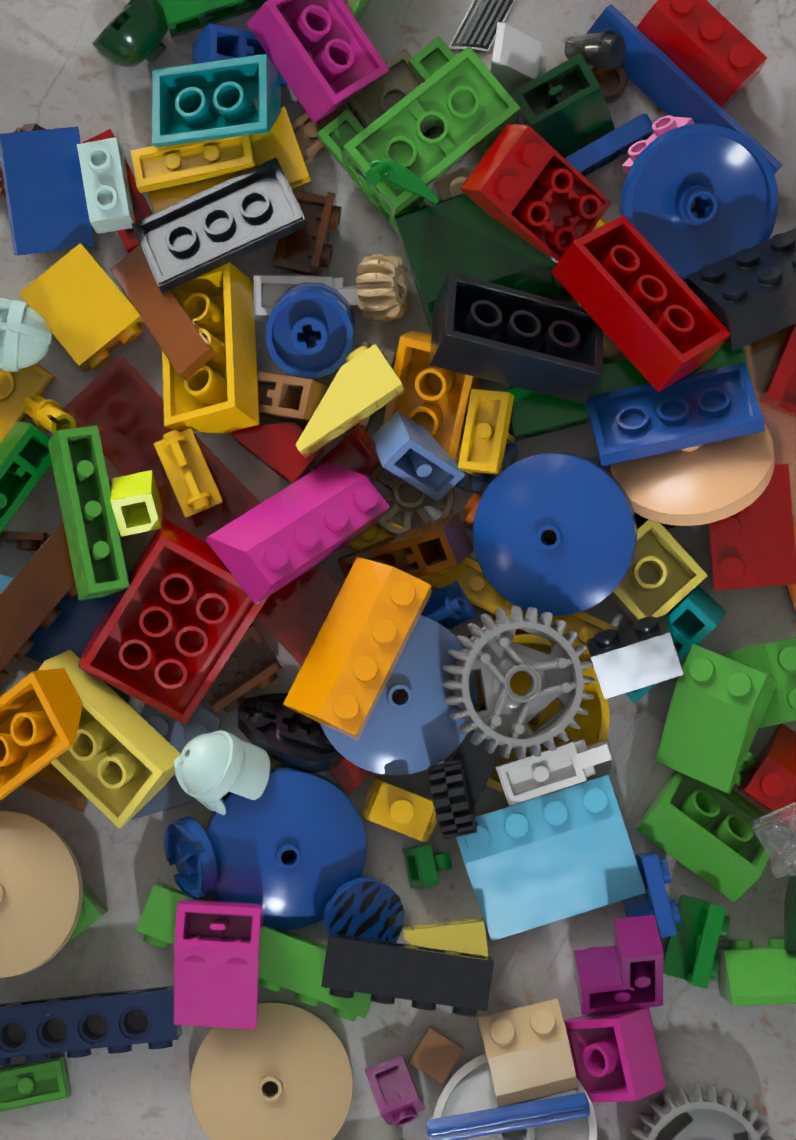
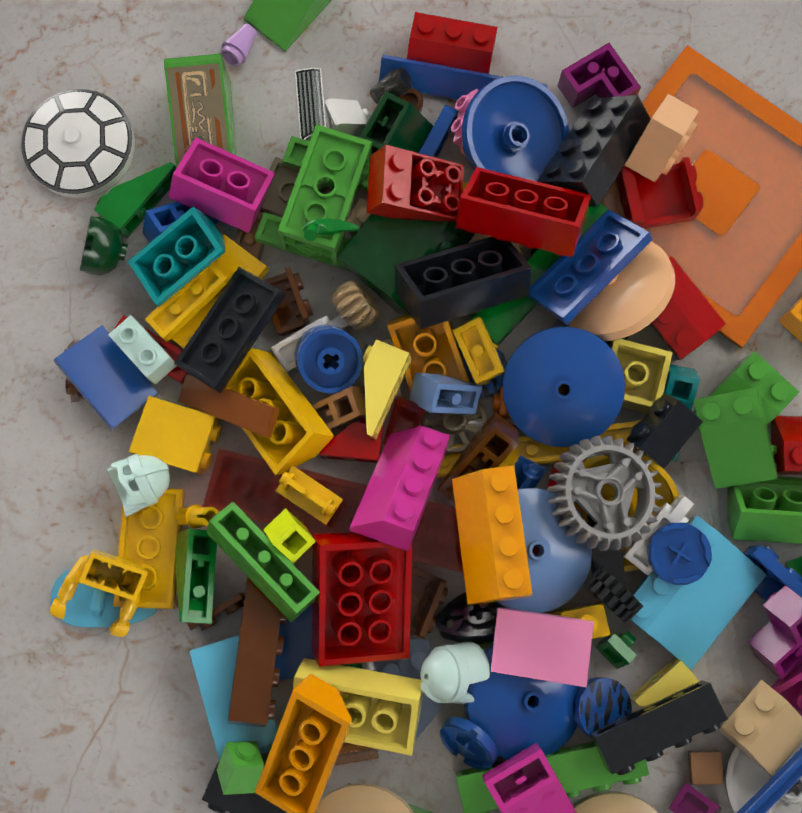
camera: 30 degrees left, 5 degrees down
(335, 803) = (542, 646): none -> bright pink tile
(557, 802) = (679, 553): none -> blue tile

